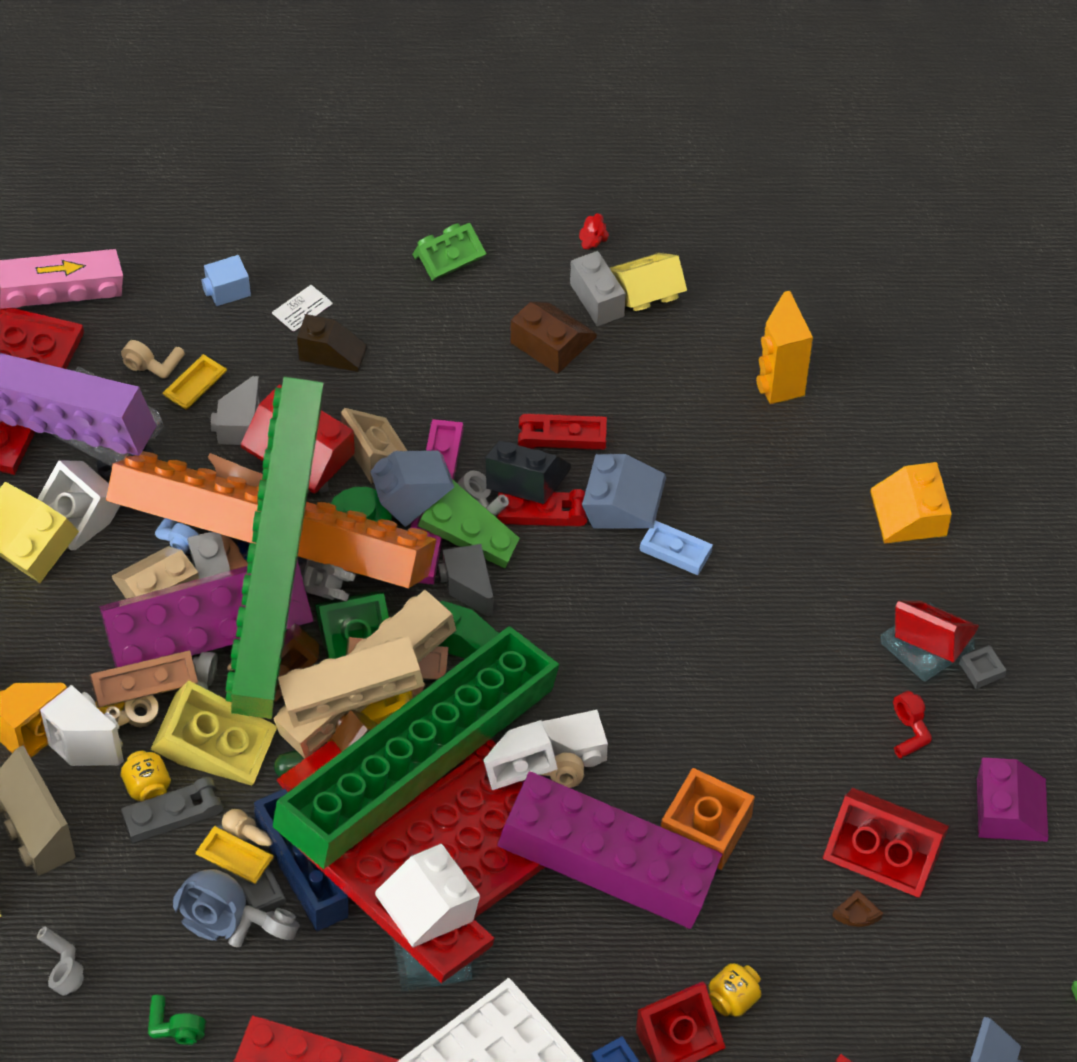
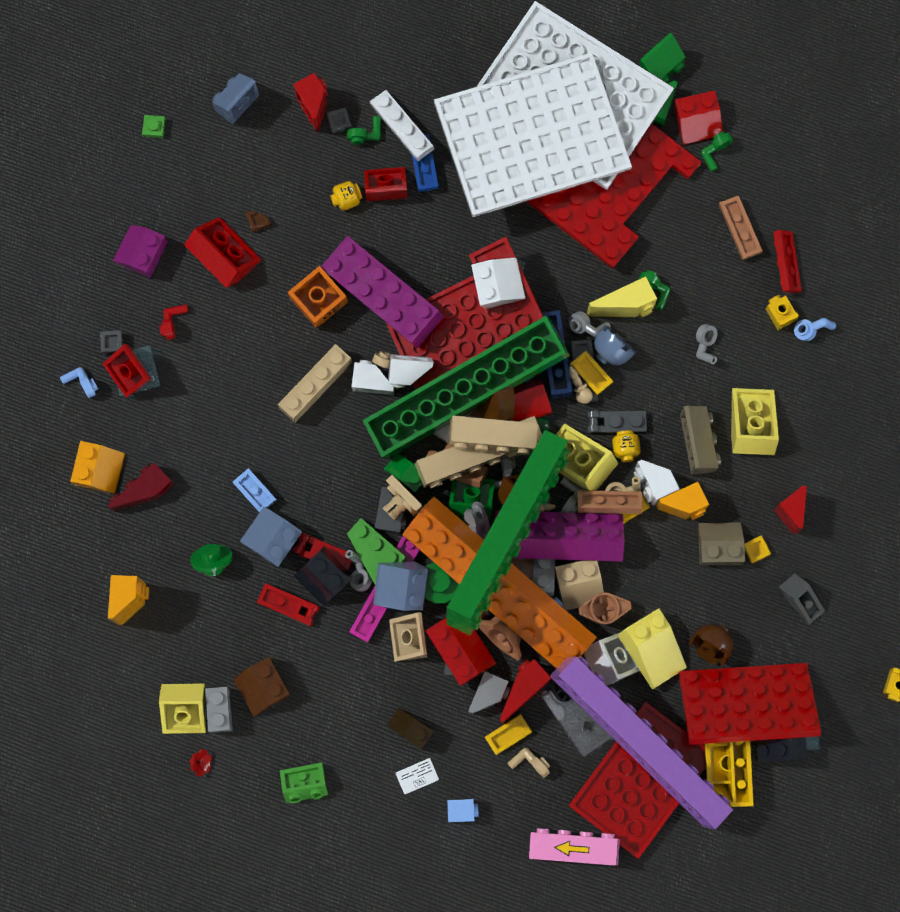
camera: 155 degrees left, 25 degrees up
(109, 548) = (604, 608): none -> nougat hat
(186, 422) = (527, 684): none -> red slope
(215, 967) = (625, 302): none -> light yellow slope
(451, 575) = (402, 499): none -> tan plate
(654, 706) = (315, 383): none -> tan brick
(694, 442) = (211, 559): none -> green piece
(829, 500) = (147, 487): none -> dark red slope
(985, 599) = (88, 385): none -> light blue plate

